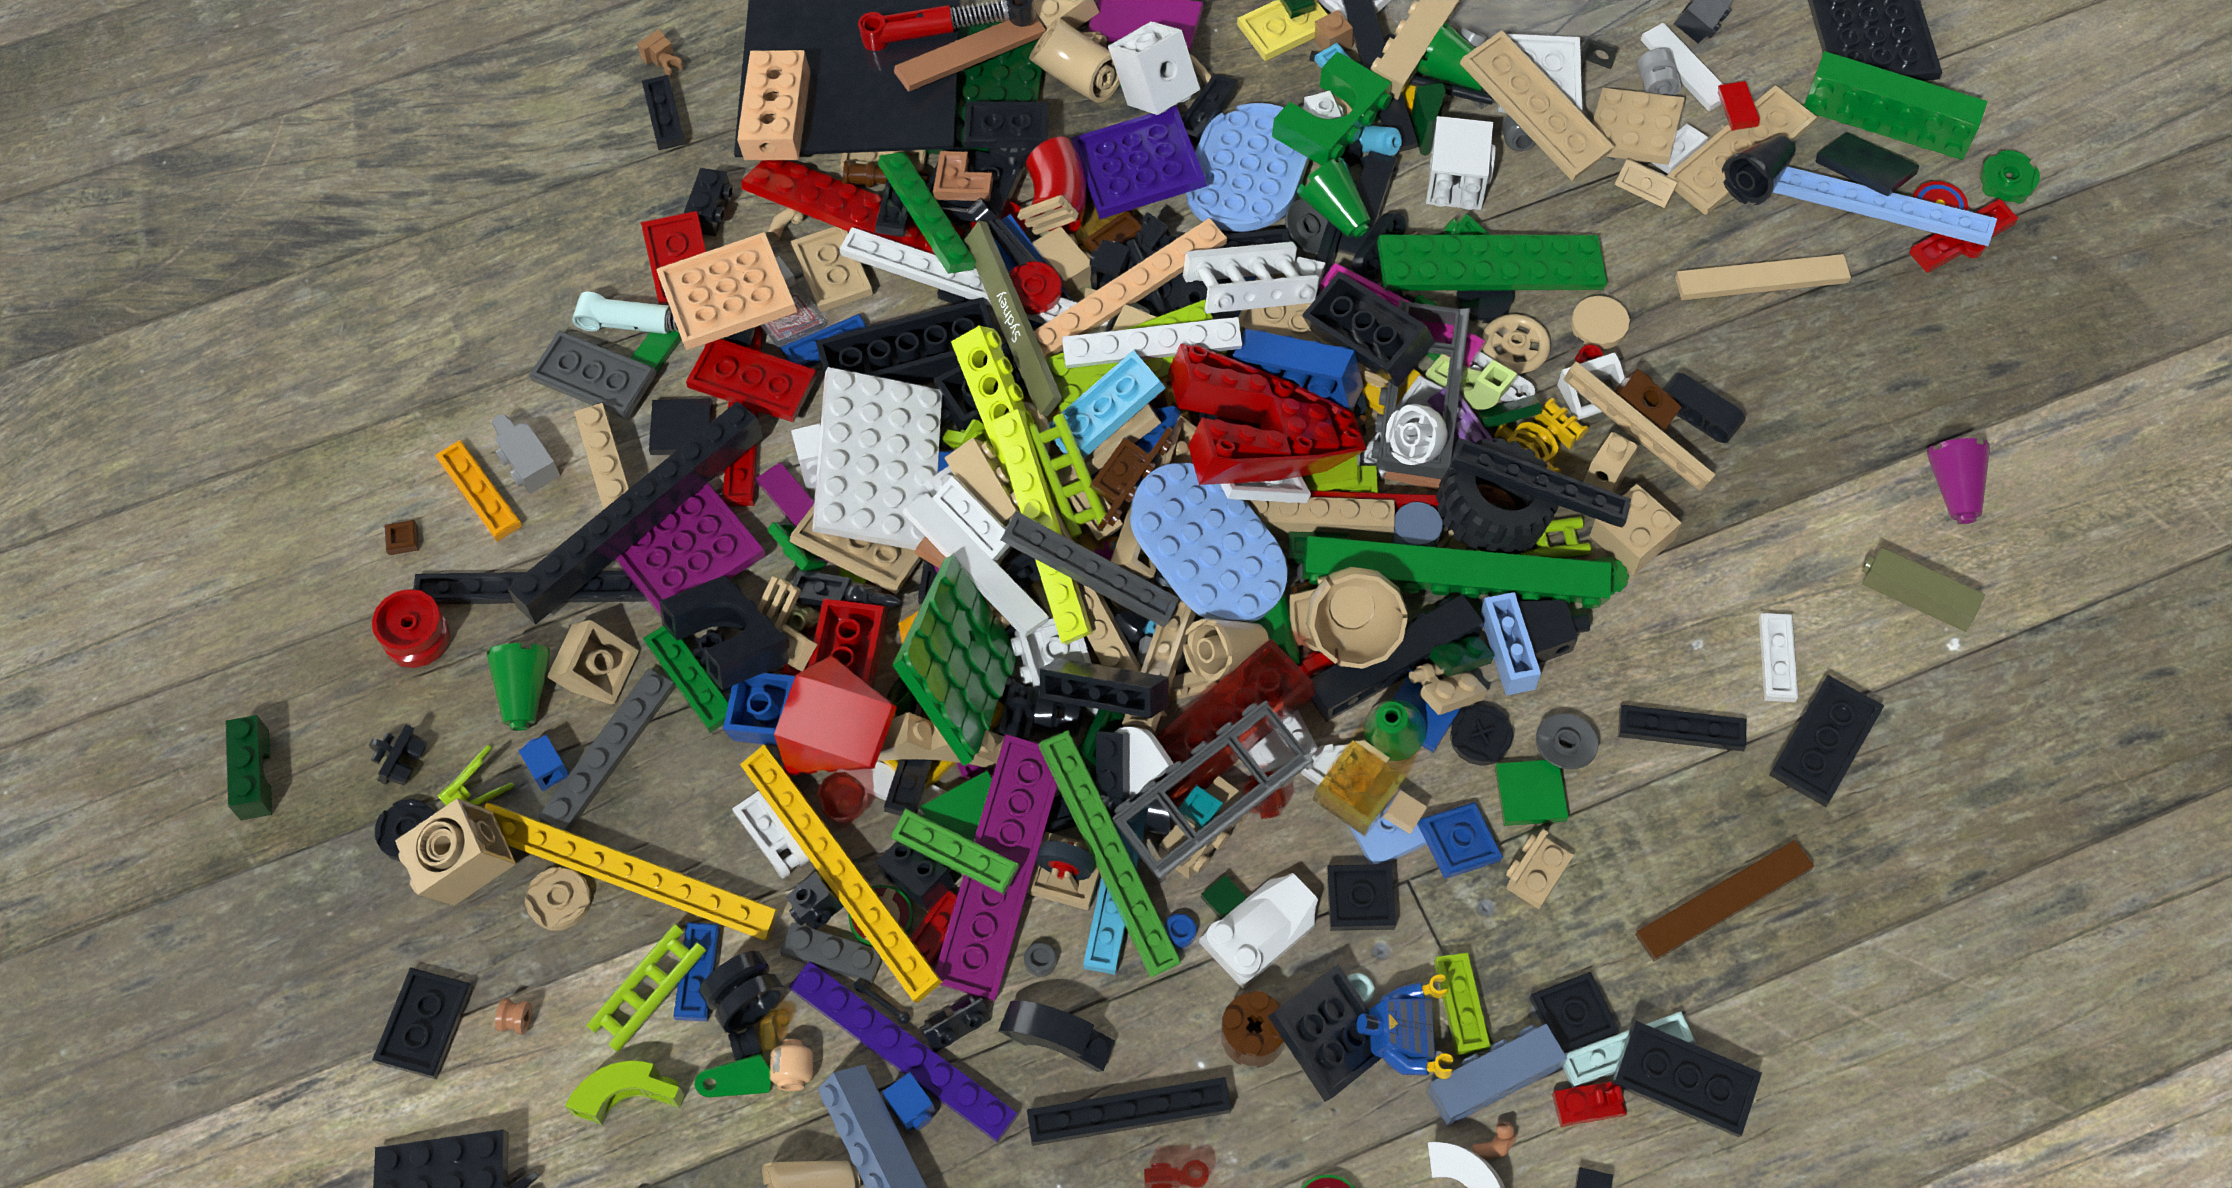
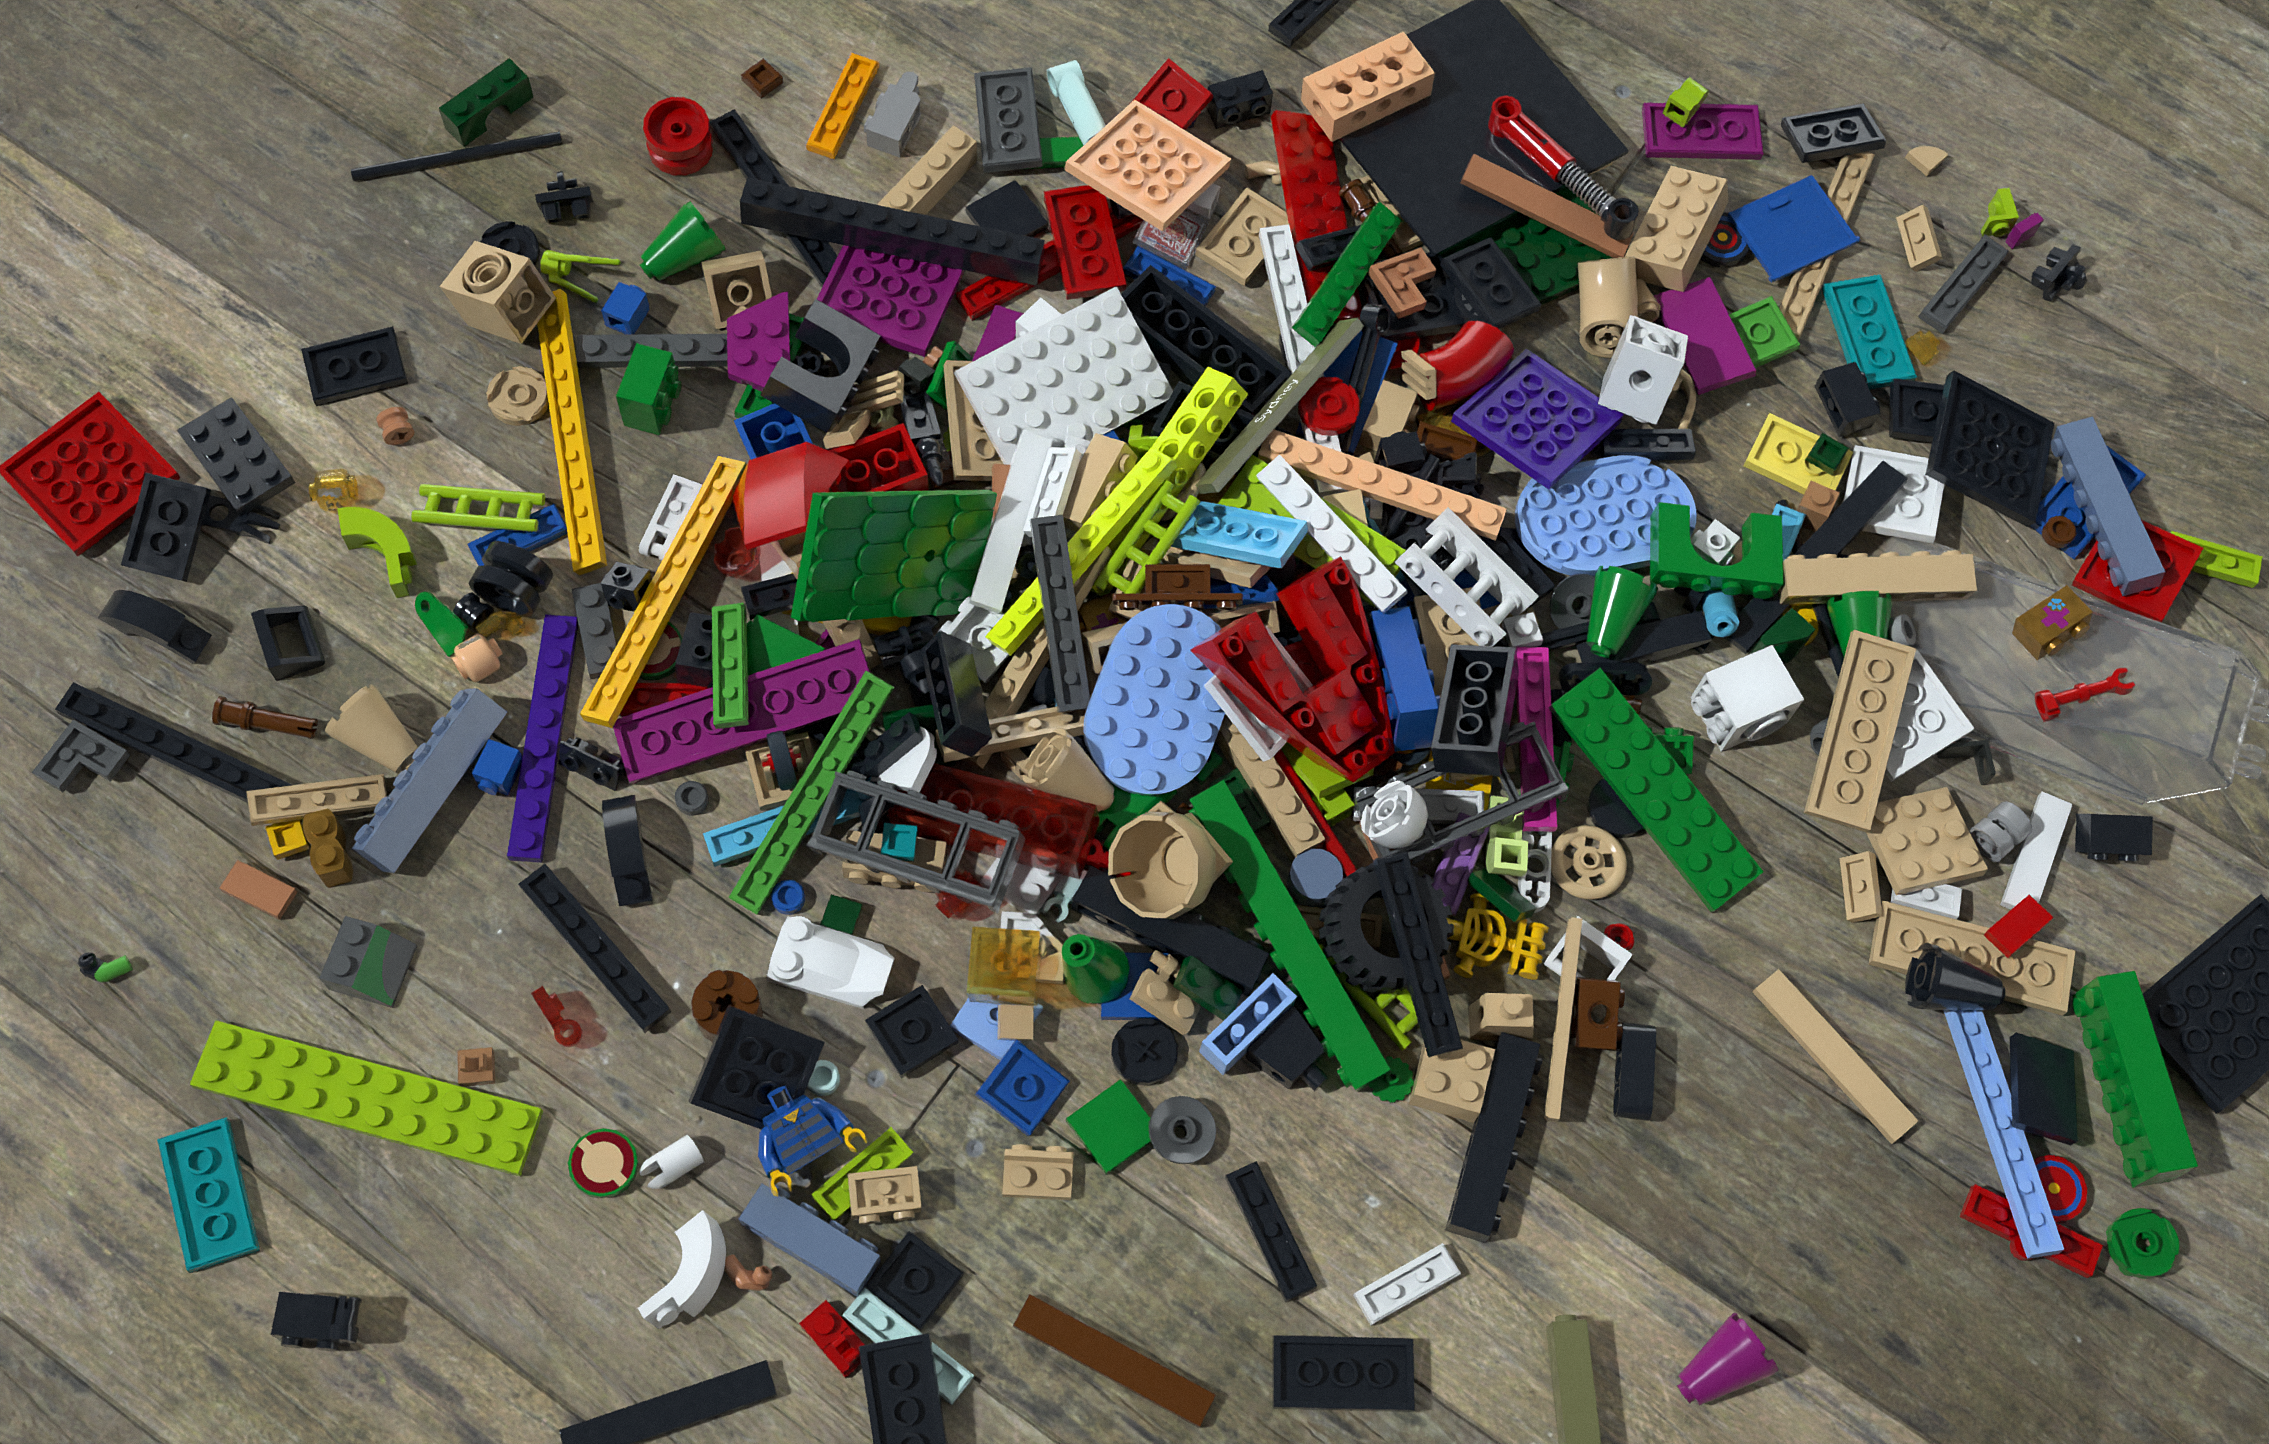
camera: 50 degrees right, 5 degrees up
(277, 826) = (456, 156): none -> black piece
(537, 1103) = (334, 489): none -> clear yellow head
(641, 781) = (648, 389): none -> green brick
(662, 672) = (758, 341): none -> magenta wing
(776, 563) = (920, 373): none -> pearl dark grey piece
(862, 986) = (574, 720): black hinge -> none
(1314, 718) = (1063, 894): none -> light aqua bar
(1362, 1145) = (674, 1161): none -> white piece
(1493, 991) = (884, 1194): none -> tan bracket
(1600, 321) = (1668, 927): tan tile -> none
(1704, 533) = (1493, 1138): none -> black brick

